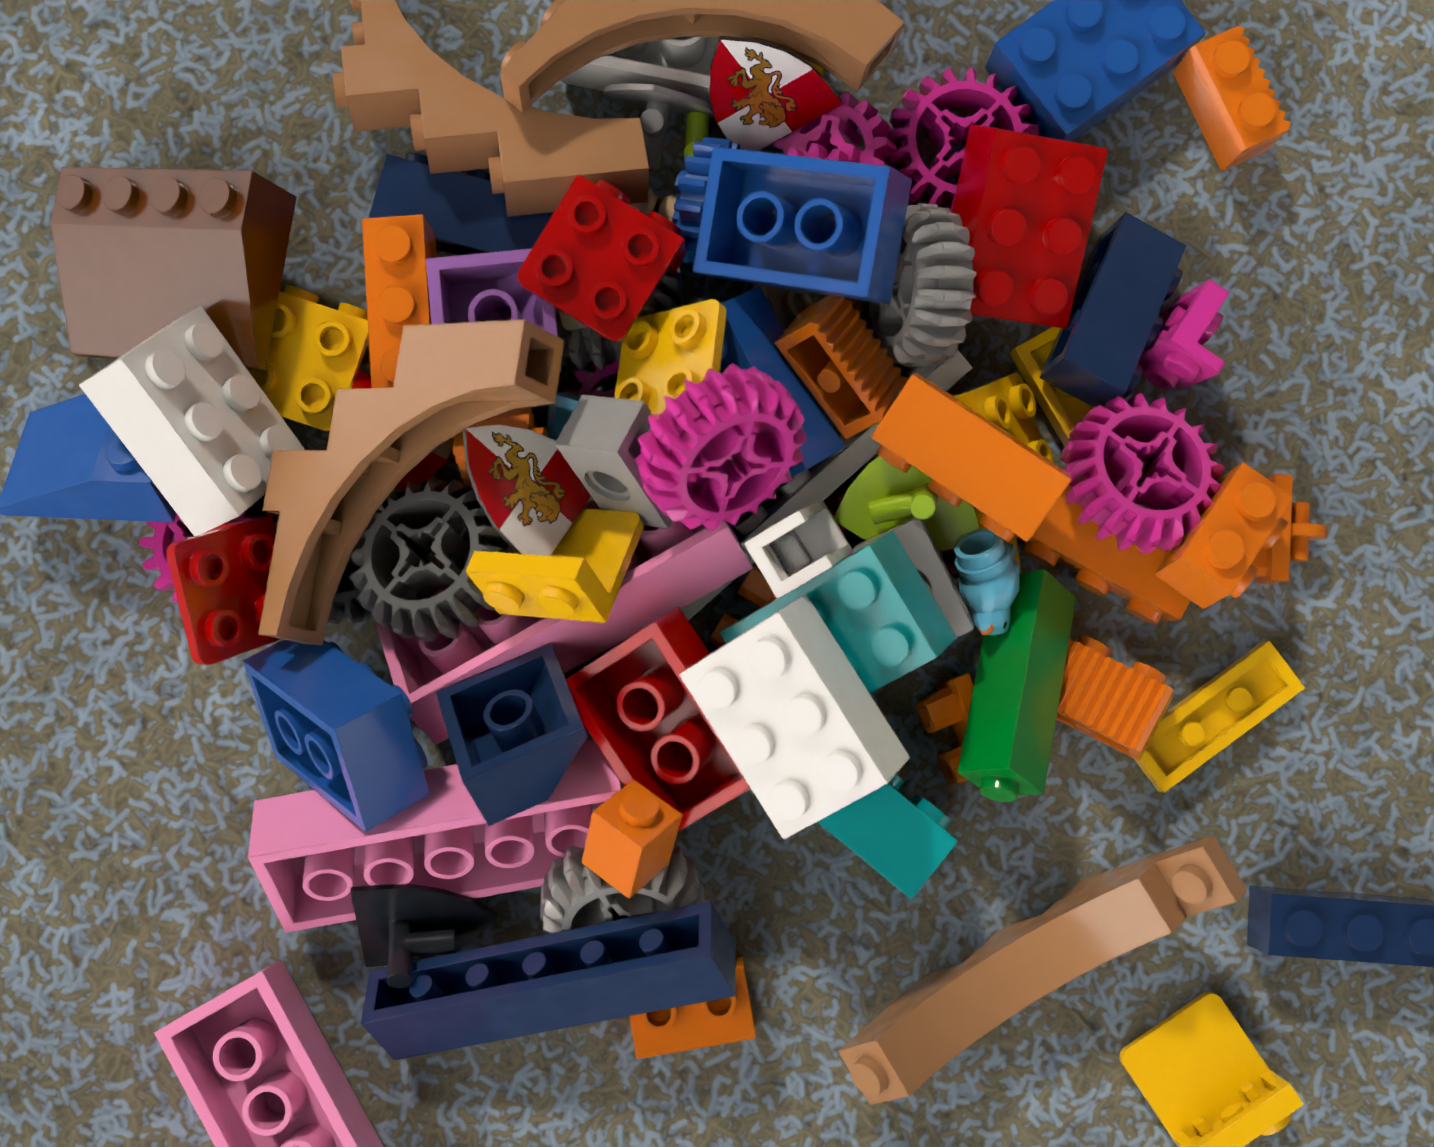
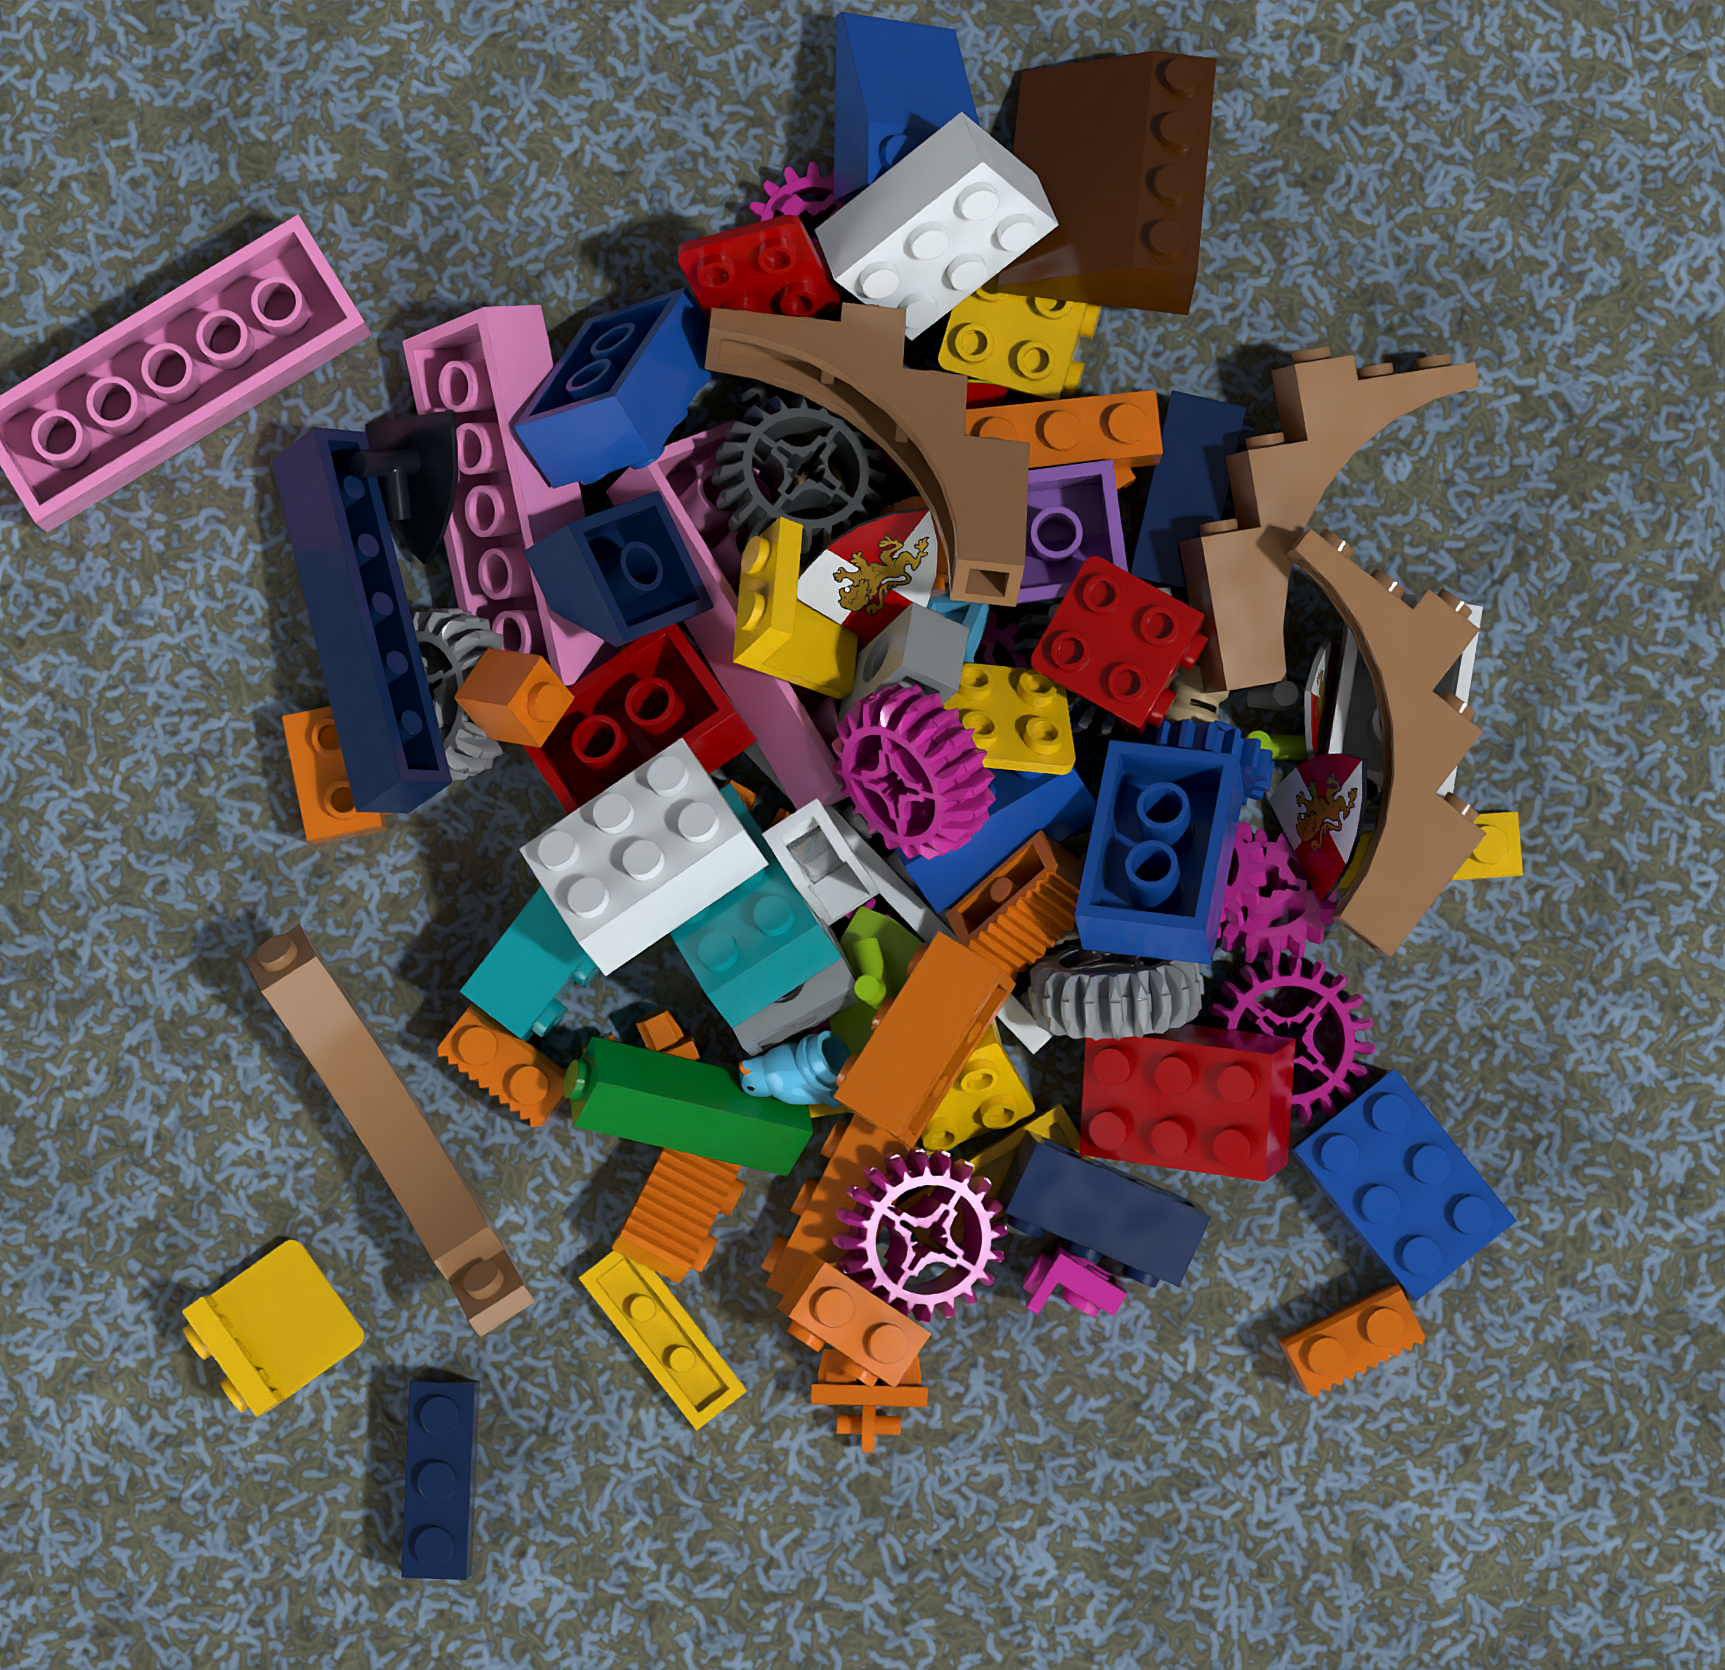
camera: 90 degrees right, 0 degrees up
(985, 837) = (505, 1066): none -> orange brick

